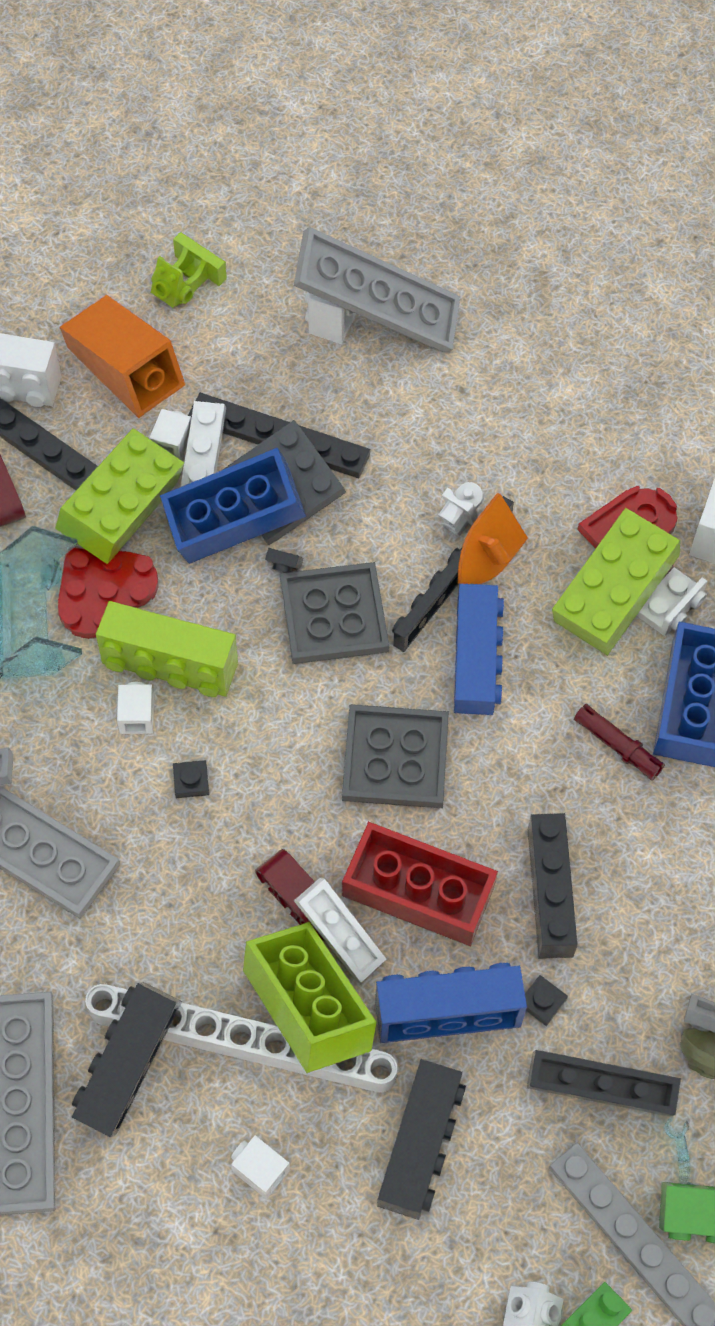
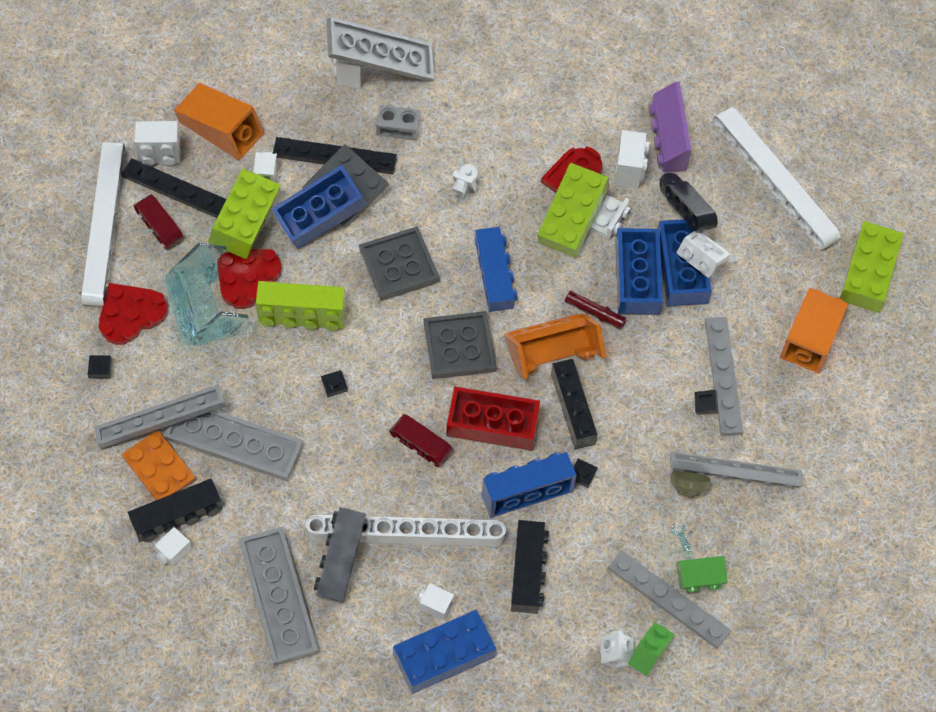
camera: 15 degrees left, 0 degrees up
(135, 708) = (288, 346): white brick -> none
(193, 262) = (249, 51): lime tile -> none
(203, 441) = (288, 169): white plate -> none
(252, 1255) = (444, 651): none -> blue brick
(283, 561) = (359, 236): black plate -> none
(309, 997) = (443, 496): lime brick -> none
(340, 929) = (451, 454): white plate -> none
(382, 408) = (397, 126): none -> light grey brick
(427, 604) = (471, 218): black plate -> none
(490, 543) = (488, 201): orange shield -> none
(540, 779) = (553, 341): none -> orange windscreen
(603, 1083) = (629, 512): black brick -> none

